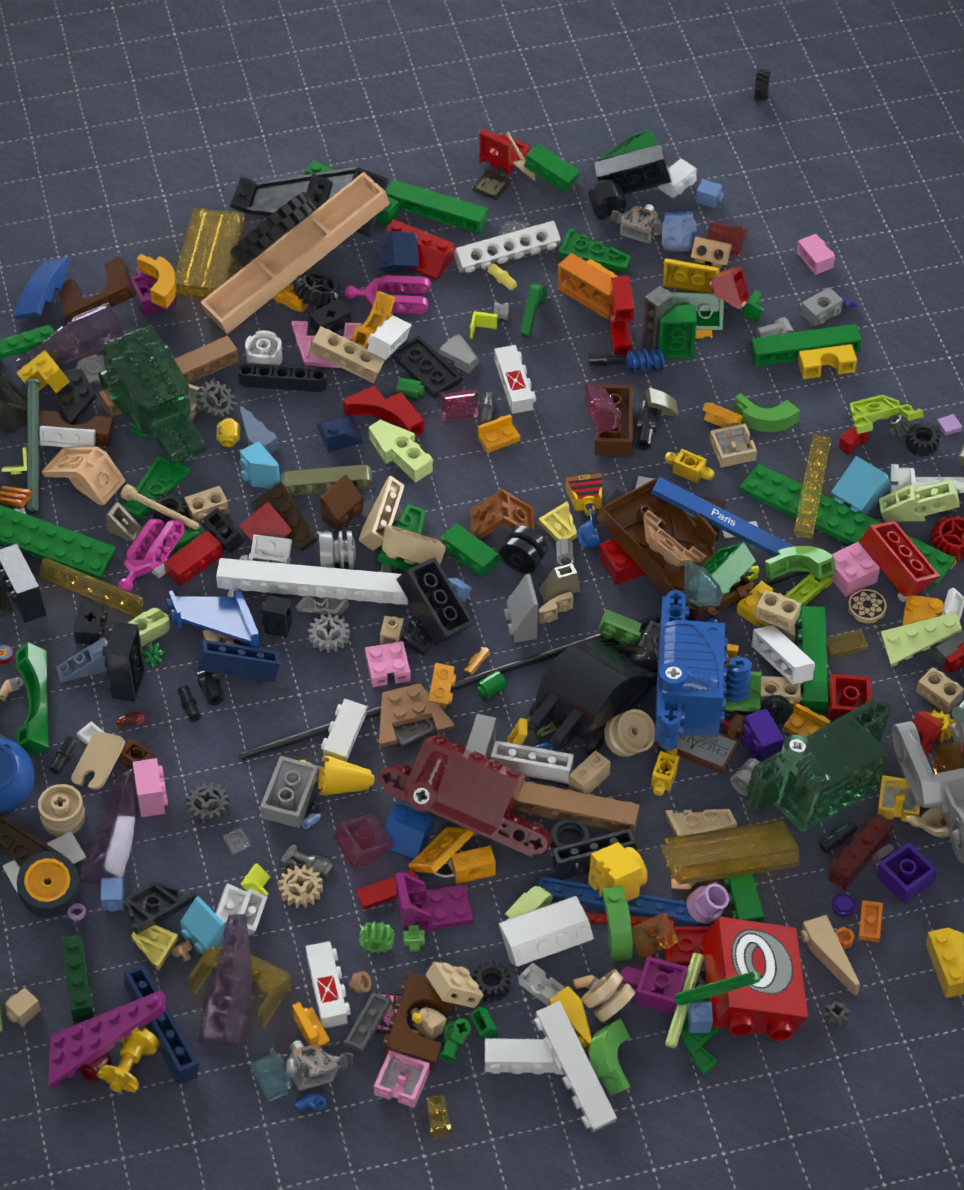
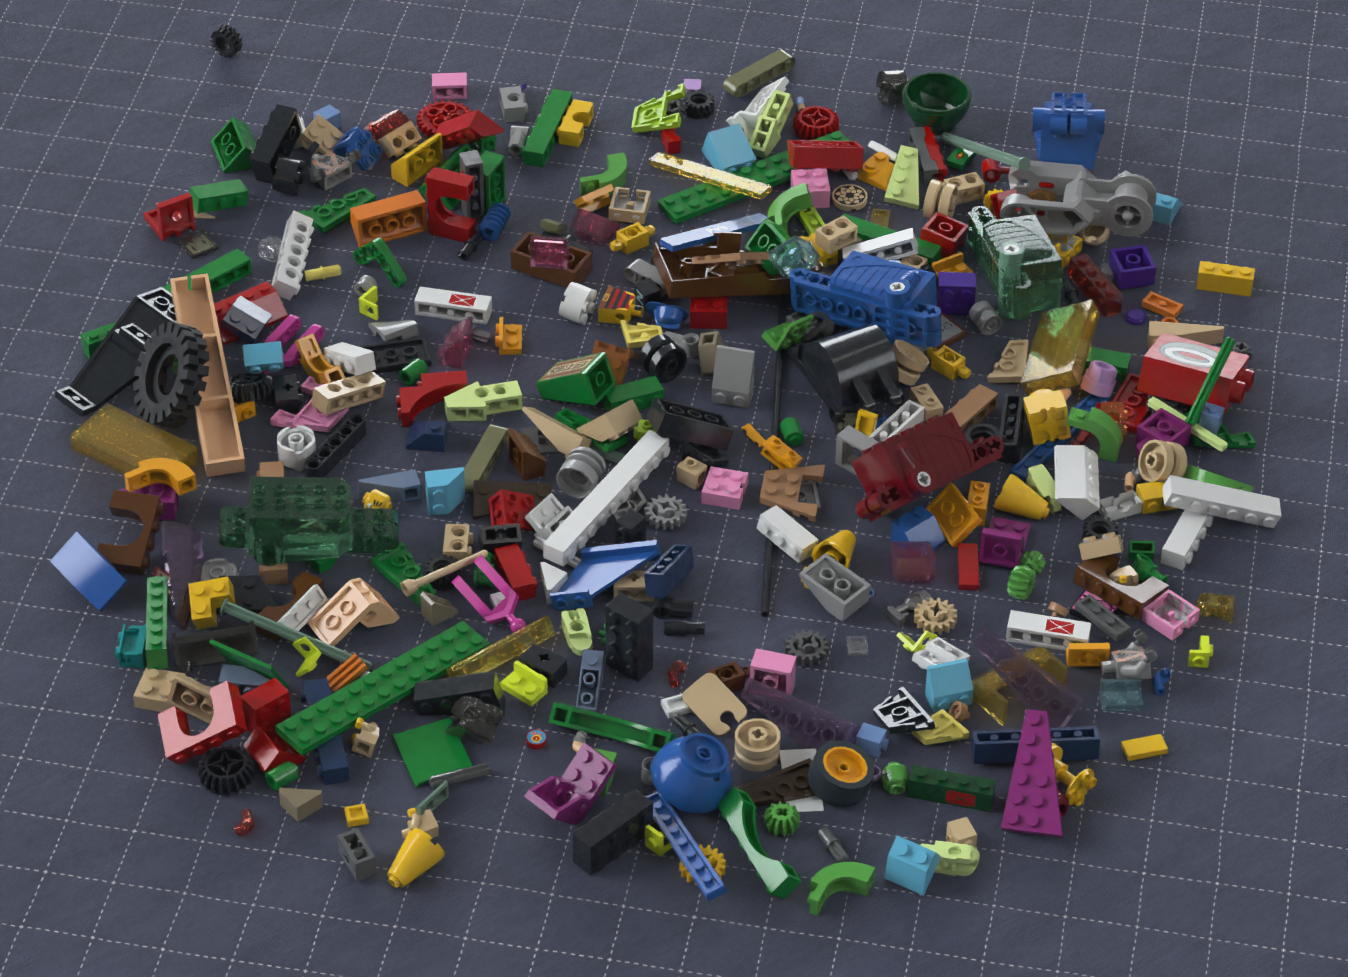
camera: 65 degrees left, 10 degrees down
(62, 620) = (525, 684): none -> neon yellow bracket
(72, 926) = (895, 778): none -> bright green head
(194, 586) = (552, 579): none -> white slope
(213, 1118) = (1144, 747): none -> yellow tile
(347, 282) = (263, 357): none -> medium azure slope
(365, 1126) = (1201, 657): none -> neon yellow bracket
(451, 501) = (578, 380): none -> green slope
(494, 896) = (1021, 500): none -> yellow cone
(564, 460) = (577, 303): none -> white brick
(674, 196) = (322, 133): none -> tan piece
(689, 432) = (594, 225): none -> clear pink slope
(767, 270) = (436, 113): none -> red gear
(895, 676) = (940, 199): none -> tan wheel

